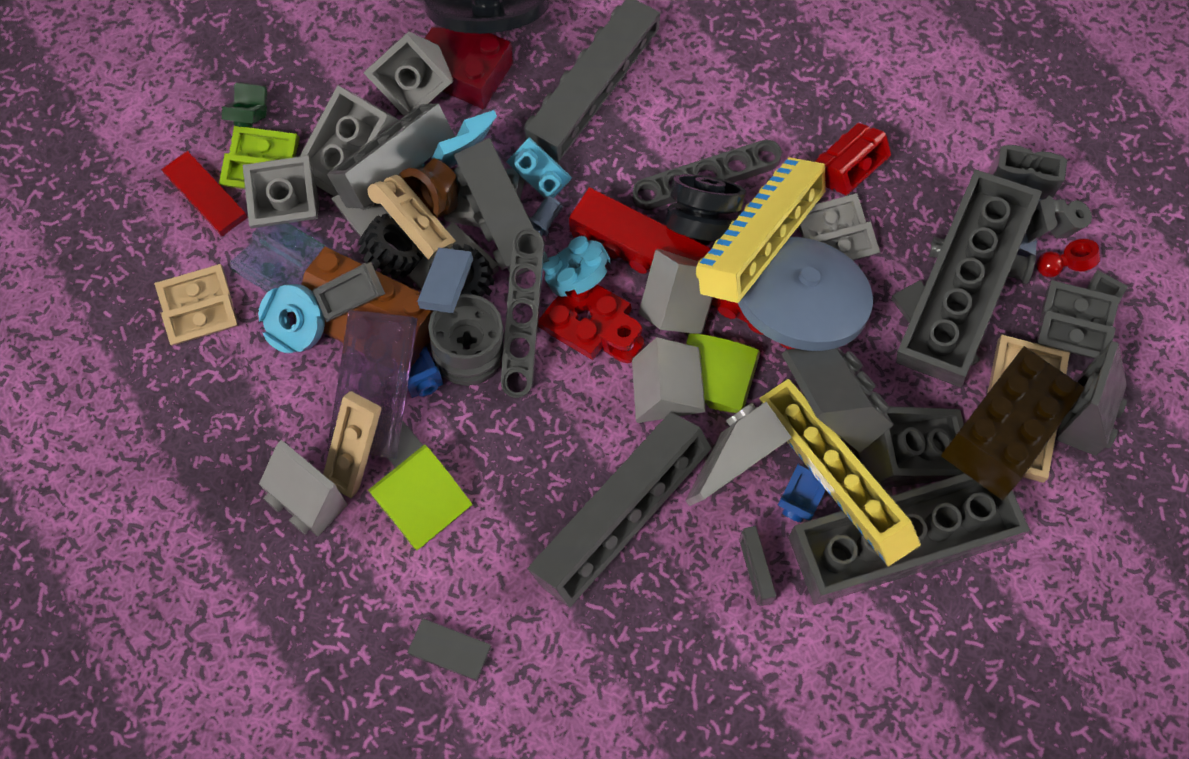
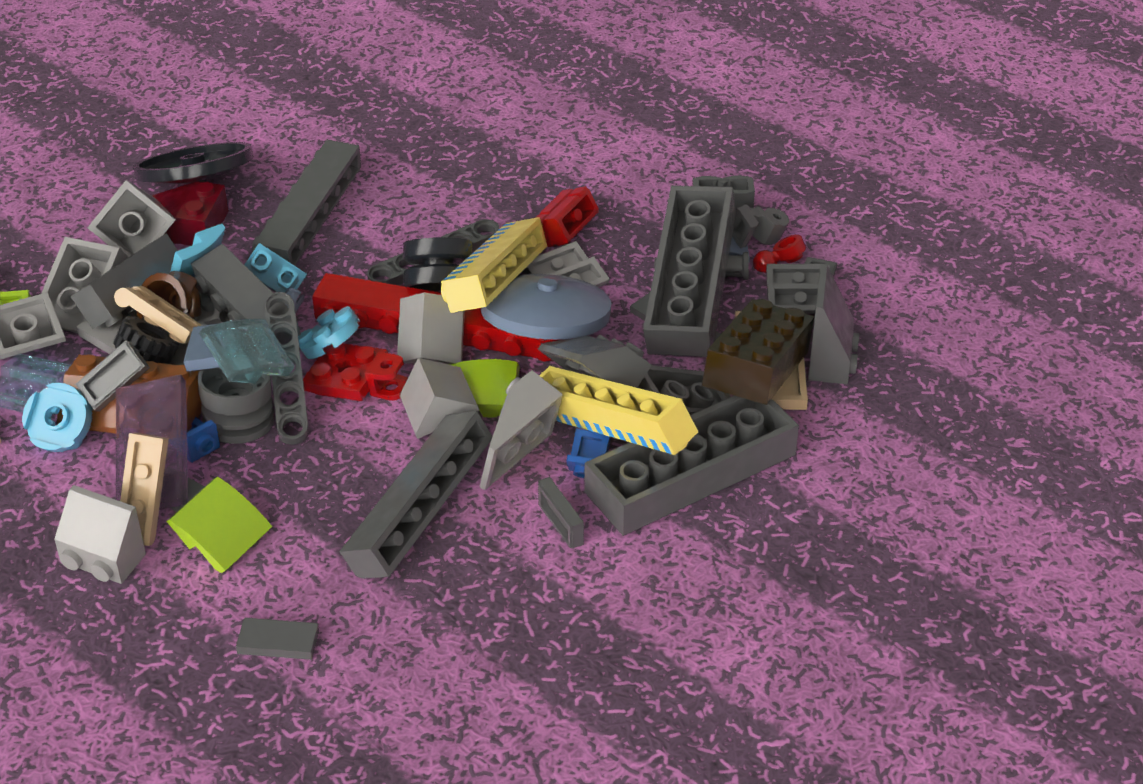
camera: 15 degrees left, 25 degrees down
(482, 300) = (246, 350): none -> clear light blue slope

